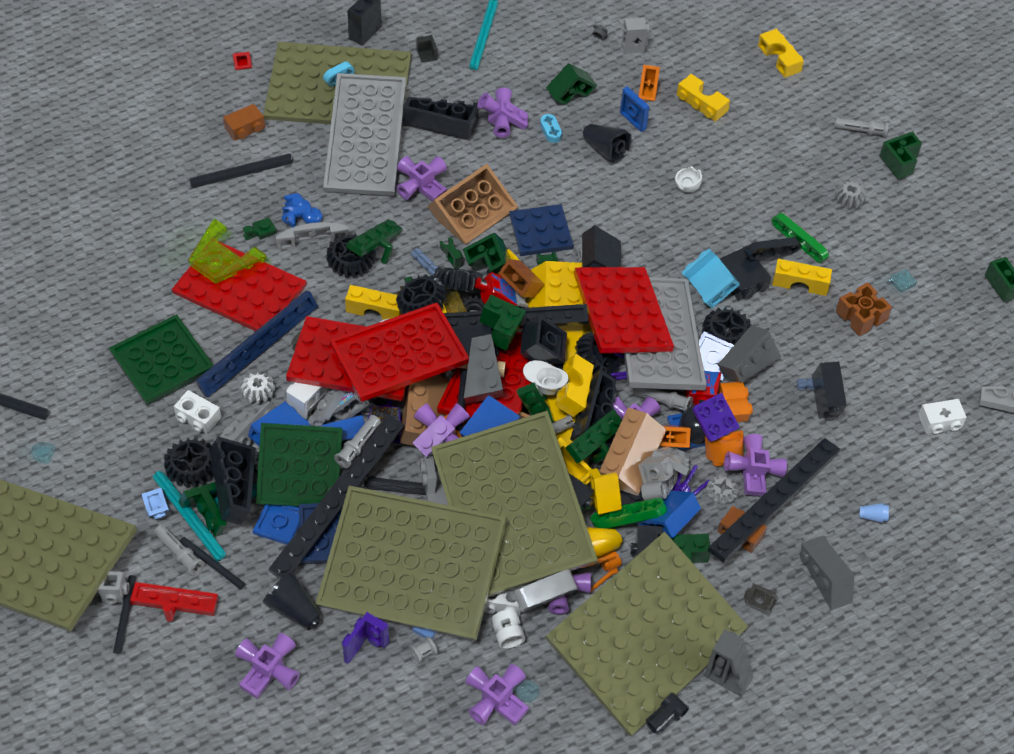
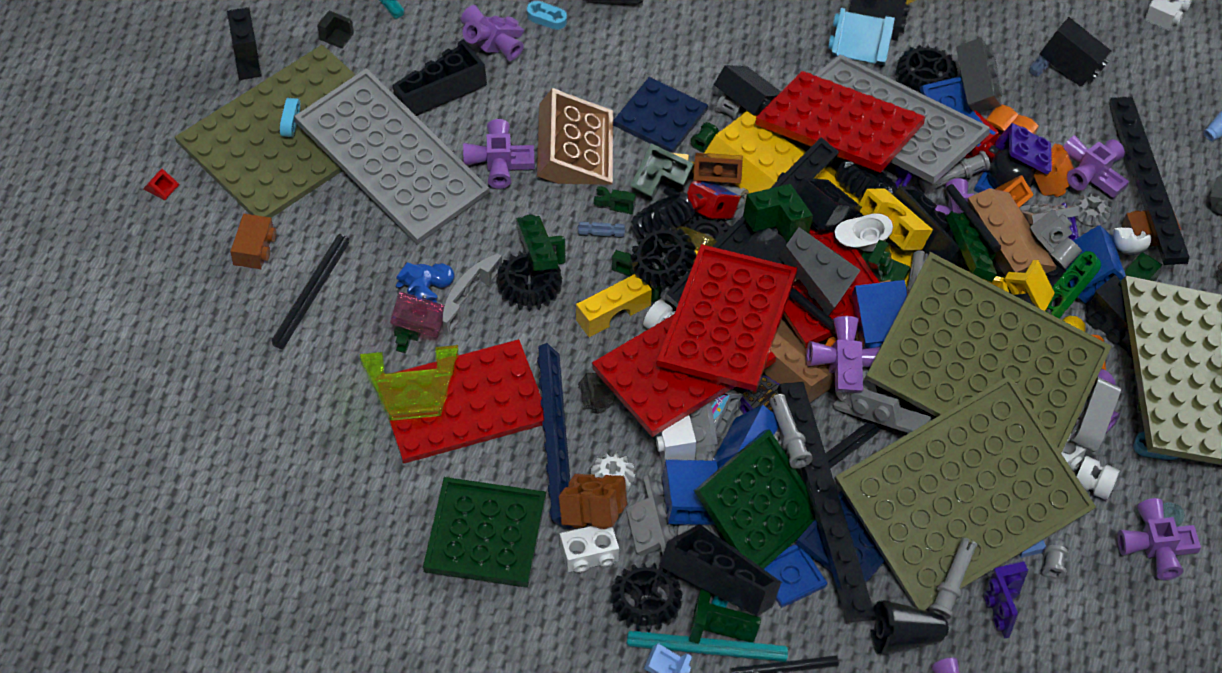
camera: 45 degrees left, 0 degrees up
(223, 388) = (593, 500): none -> dark orange brick
(268, 222) = (417, 314): none -> clear pink plate
(338, 603) = (950, 589): none -> light grey pin
(615, 426) = (973, 218): none -> black bar
(708, 520) = (1128, 242): none -> white hair

